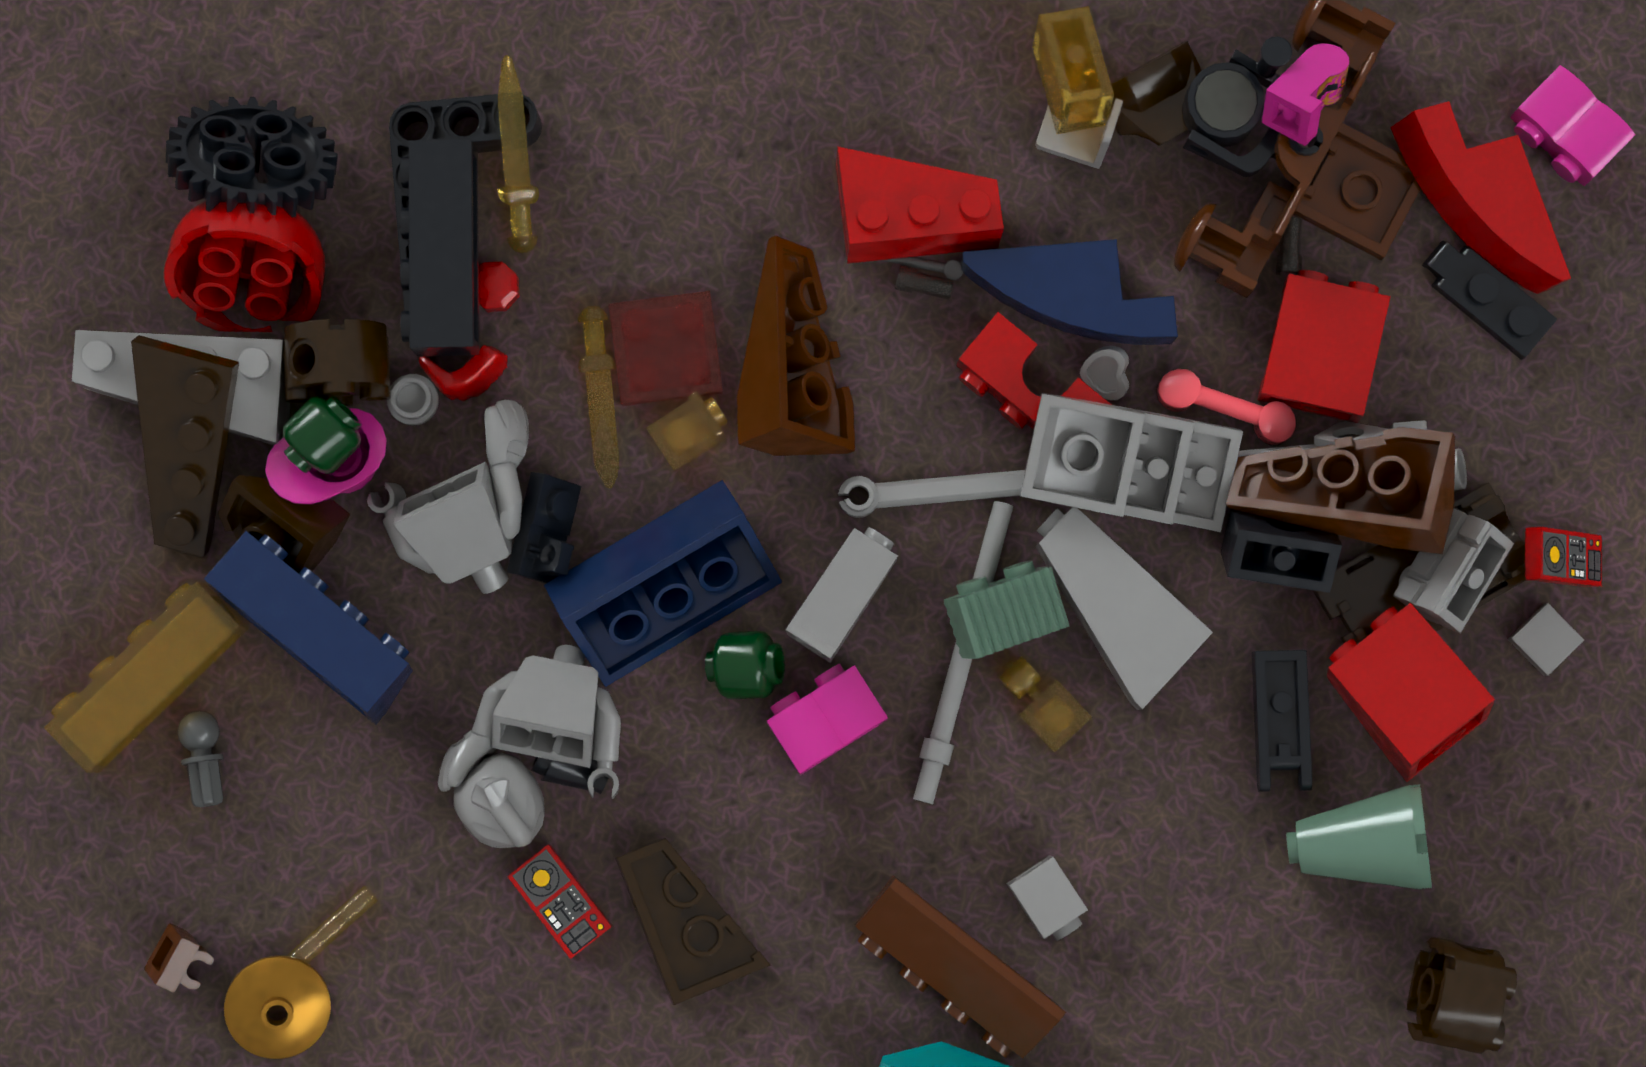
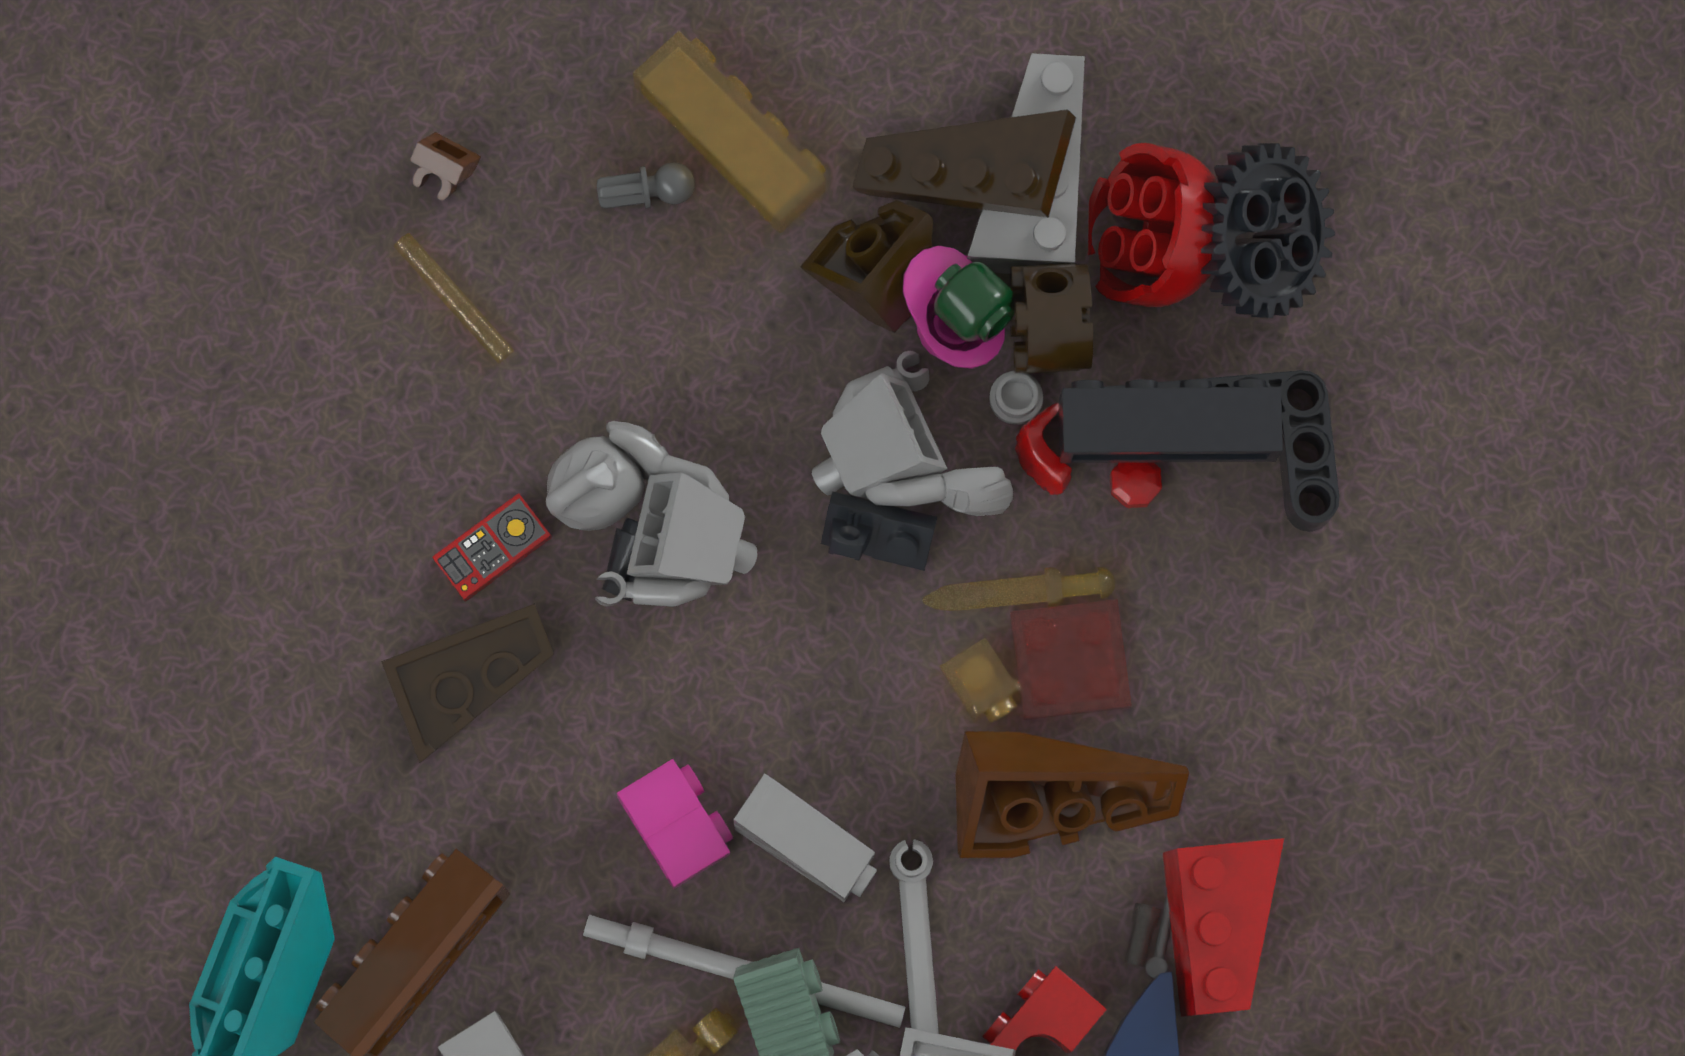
camera: 85 degrees right, 5 degrees down
(271, 983) = (415, 270): pearl gold dish -> none
(311, 626) = (776, 292): dark blue slope -> none
(517, 191) = (1235, 504): clear yellow sword -> none
(663, 583) = (820, 654): dark blue slope -> none
(745, 665) = (732, 739): dark green head -> none

